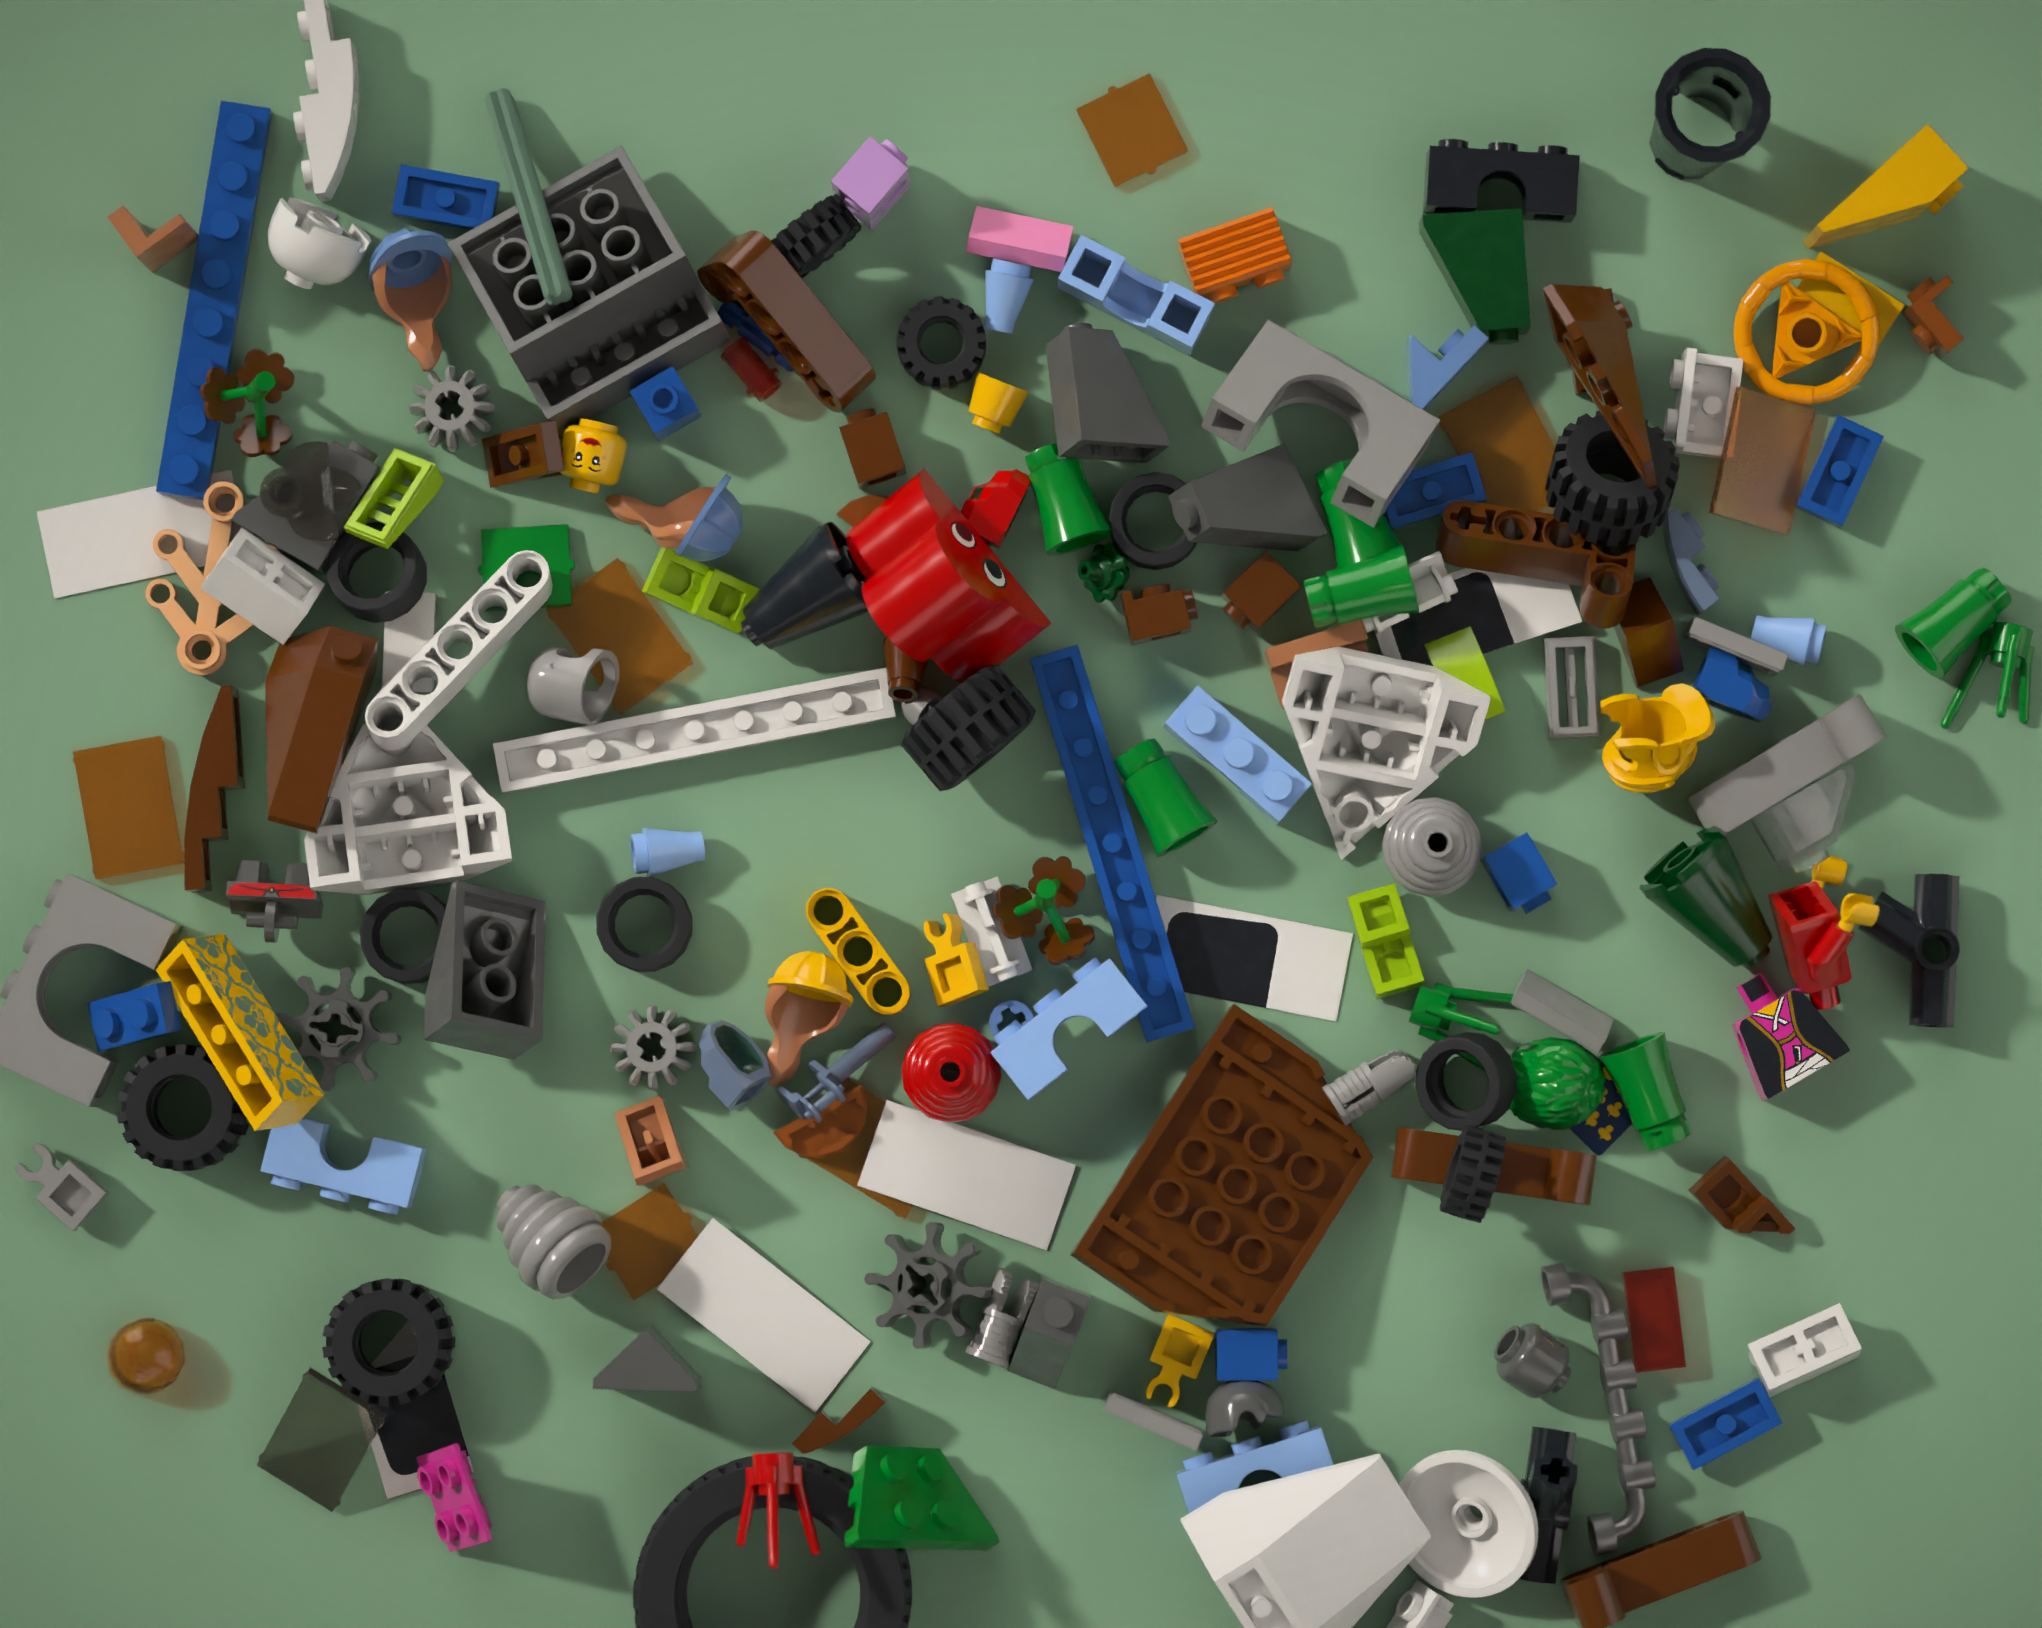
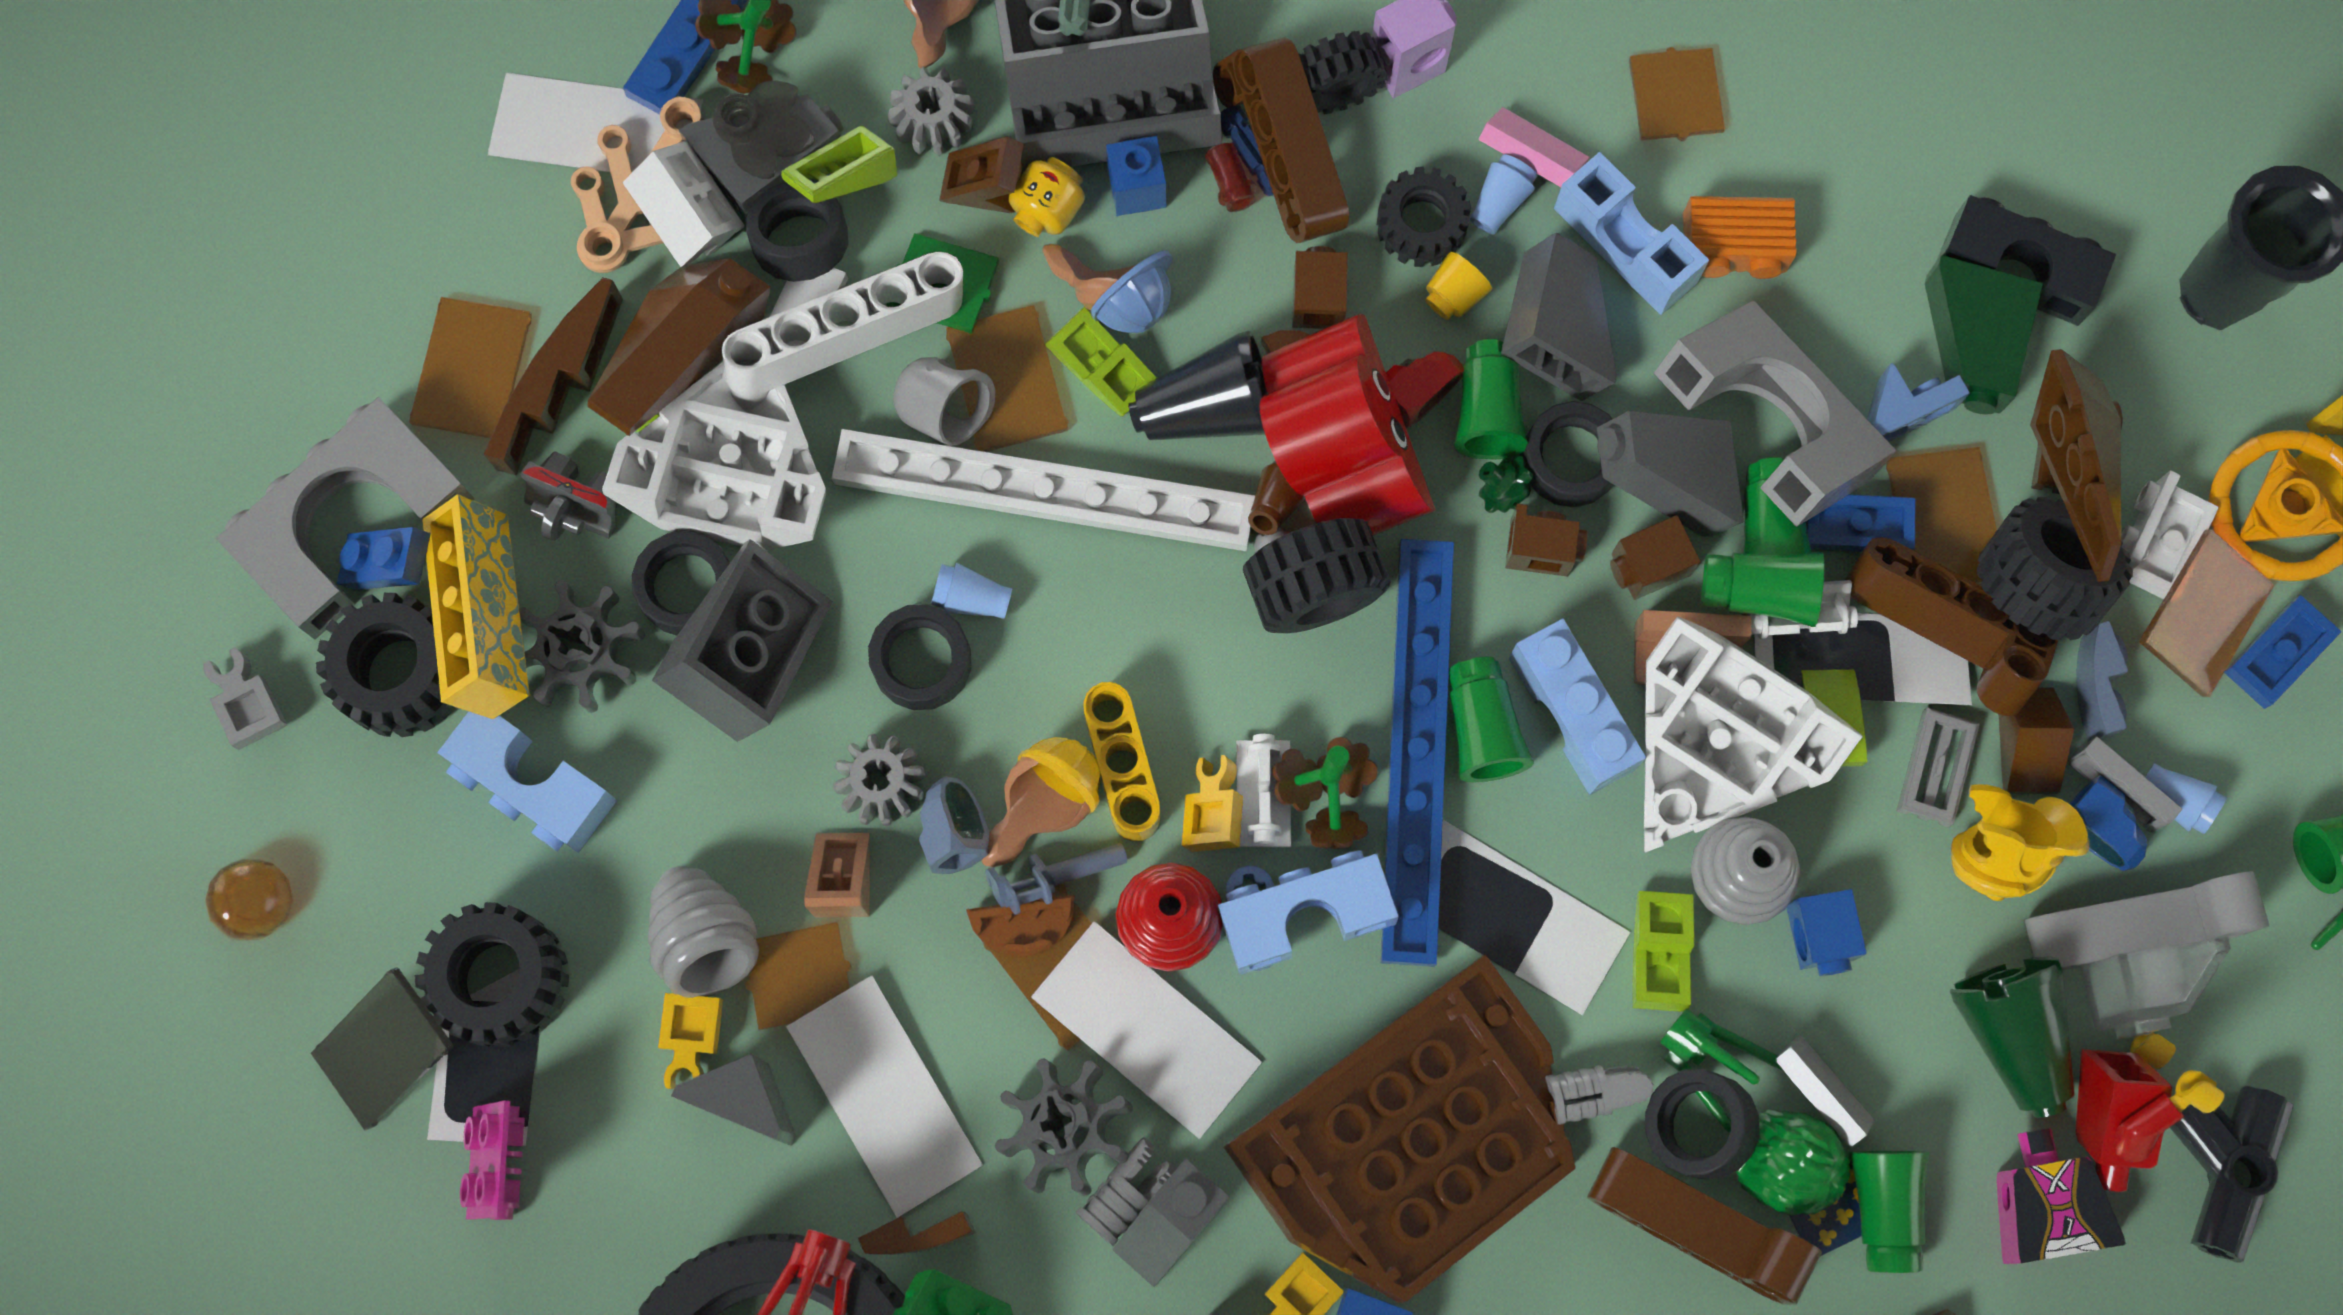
camera: 20 degrees right, 10 degrees down
(575, 1324) = (689, 1029): none -> yellow plate
(1472, 1173) = (1683, 1221): black tyre -> none

